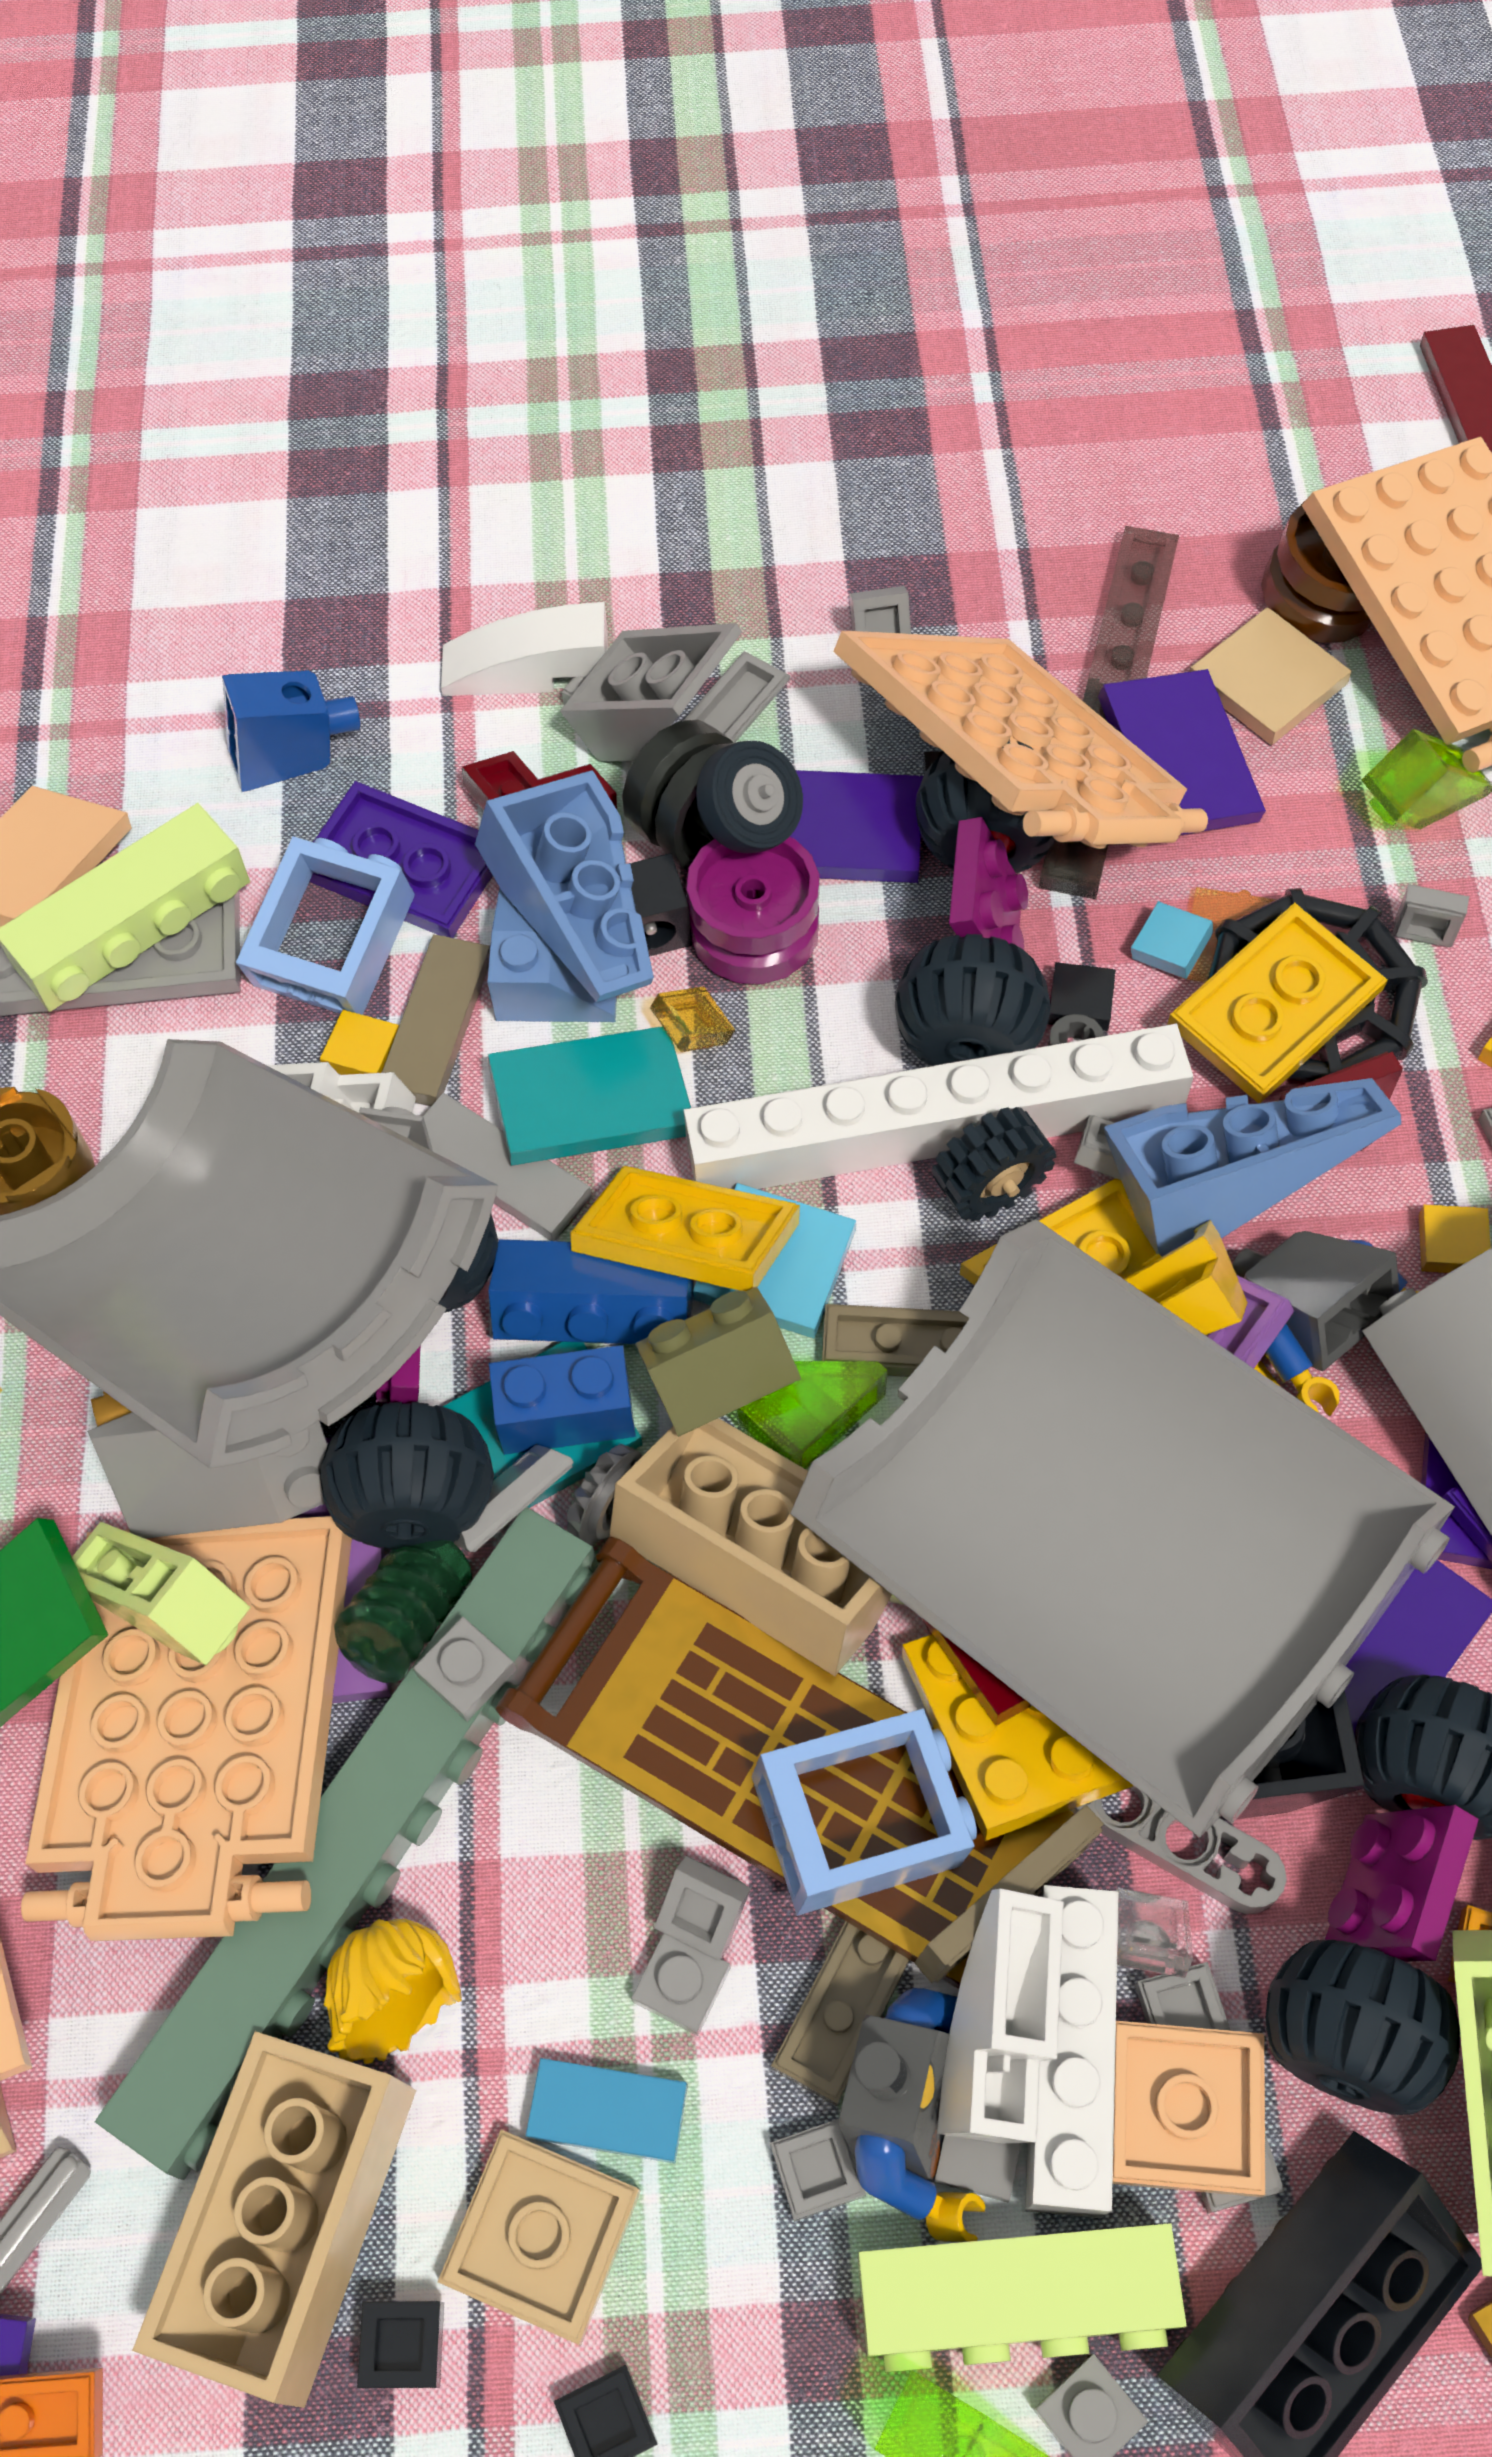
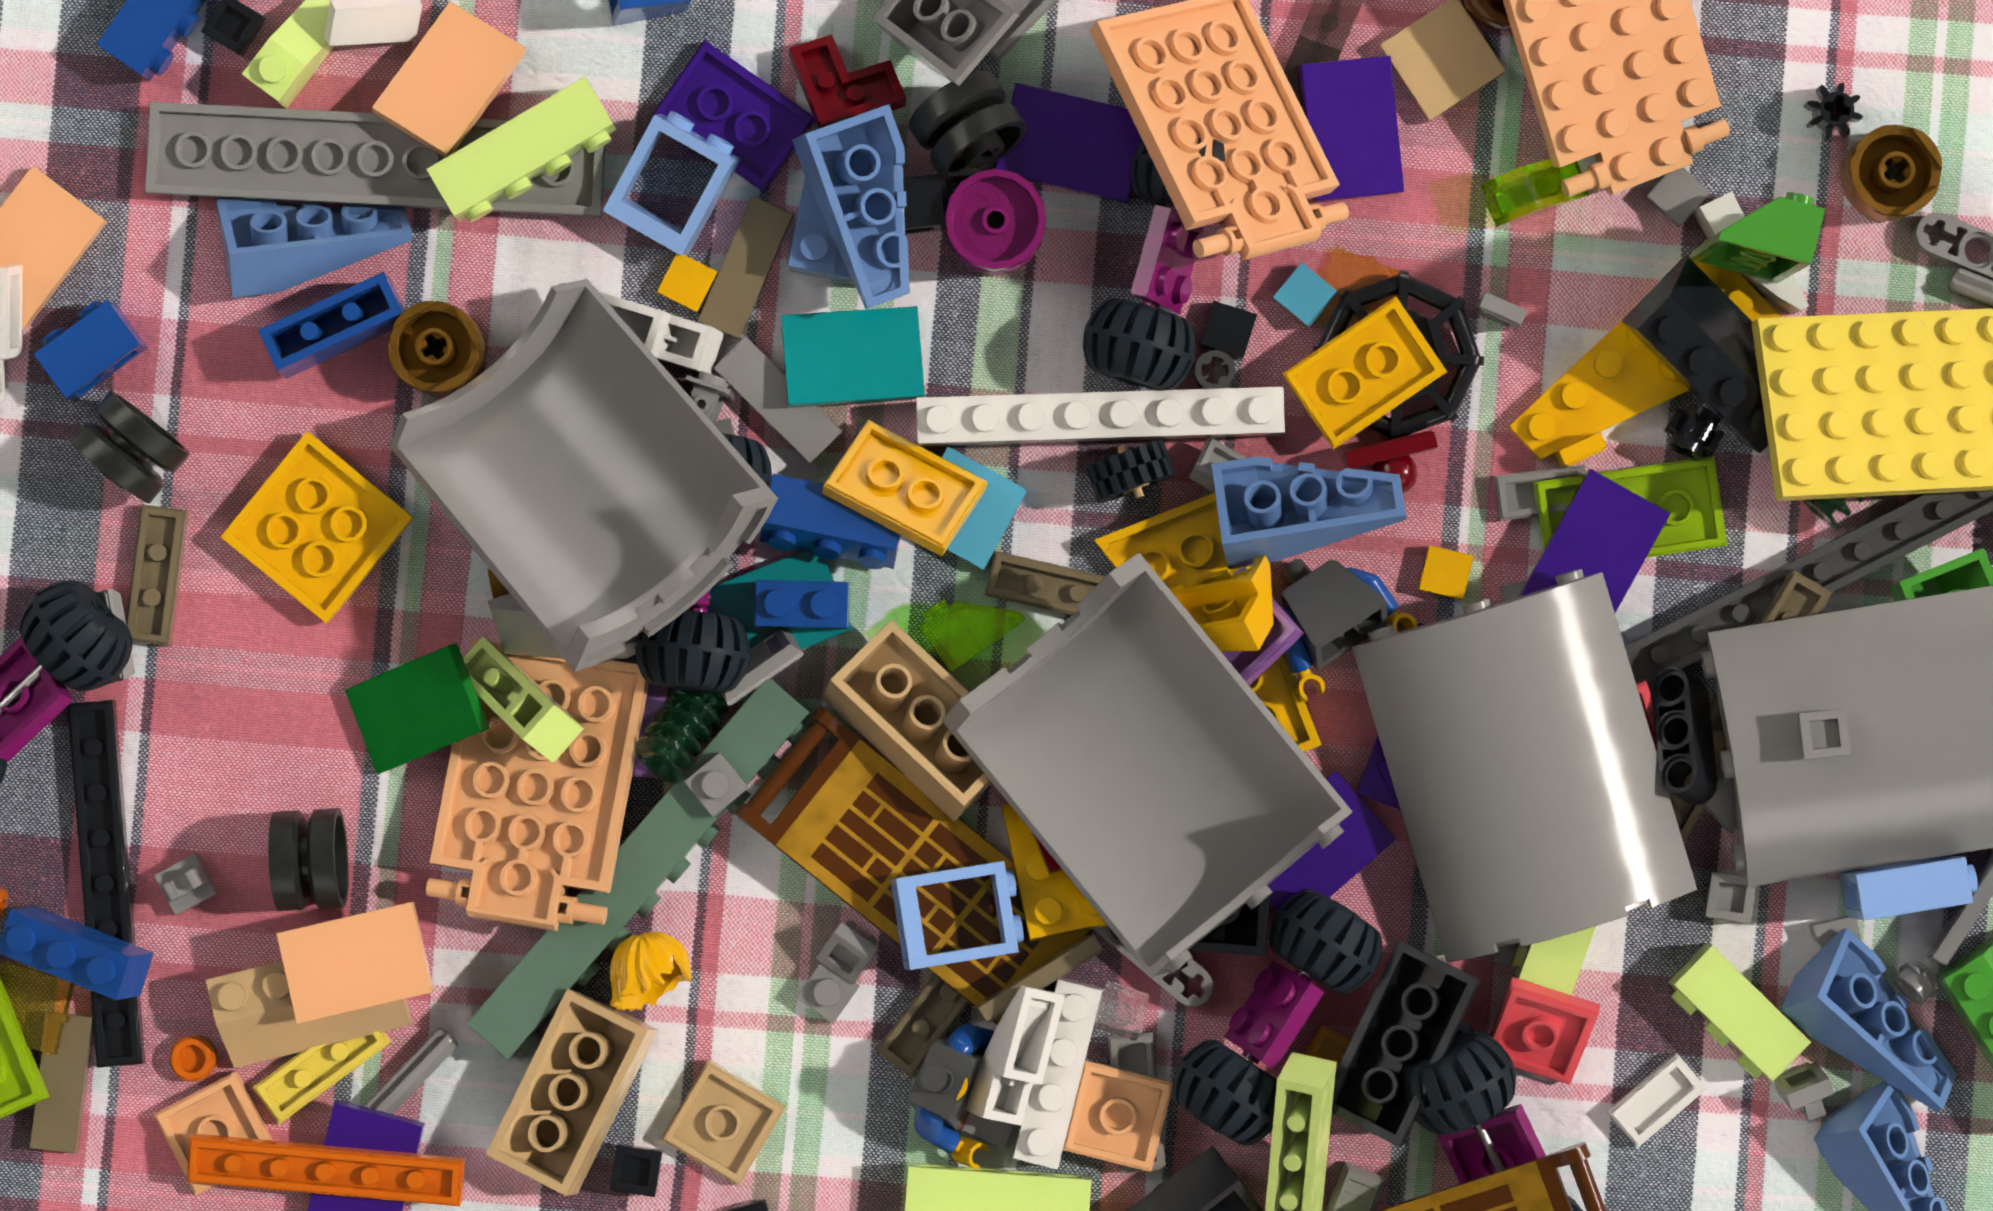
camera: 10 degrees right, 25 degrees up
(593, 1504) = (817, 678): flat silver gear -> none
(607, 2110) = (772, 1059): dark azure tile -> none
(692, 1019) = (936, 304): clear yellow tile -> none
(717, 1359) = (911, 601): olive slope -> none
(749, 797) = (1002, 161): black wheel -> none
(817, 2170) = (891, 1112): light grey tile -> none

